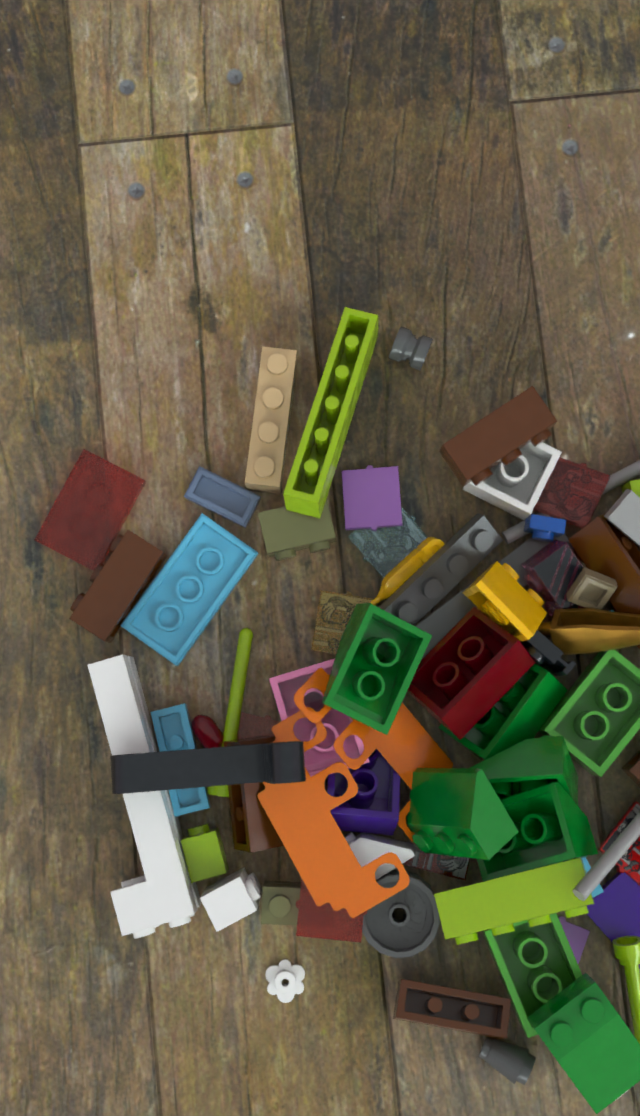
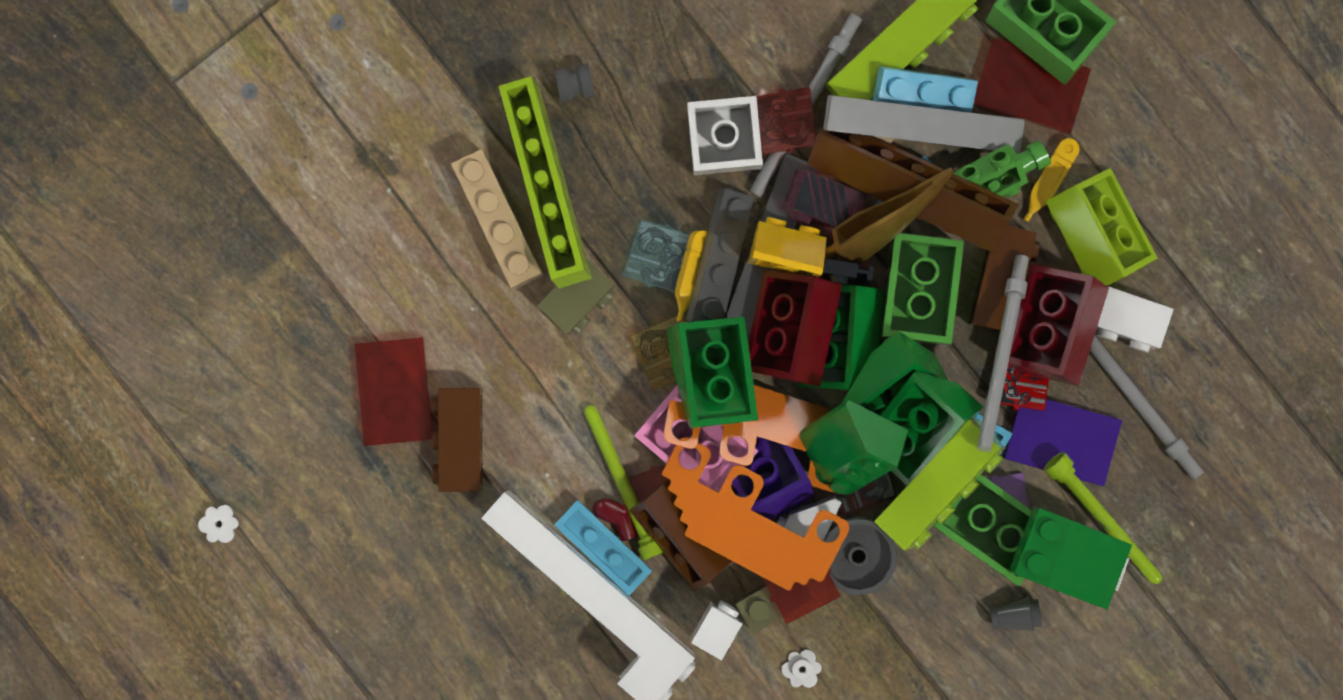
camera: 30 degrees left, 5 degrees up
(189, 589) = (520, 404): medium azure tile -> none
(204, 853) = (671, 609): lime brick -> none
(208, 767) = (632, 536): black beam -> none
(222, 497) = (497, 309): sand blue tile -> none
(371, 498) = (622, 231): medium lavender piece -> none
(452, 1009) = (947, 603): reddish brown brick -> none
(498, 437) = (697, 119): reddish brown brick -> none
(544, 527) = (781, 167): blue plate -> none
(591, 589) = (851, 196): dark tan tile -> none

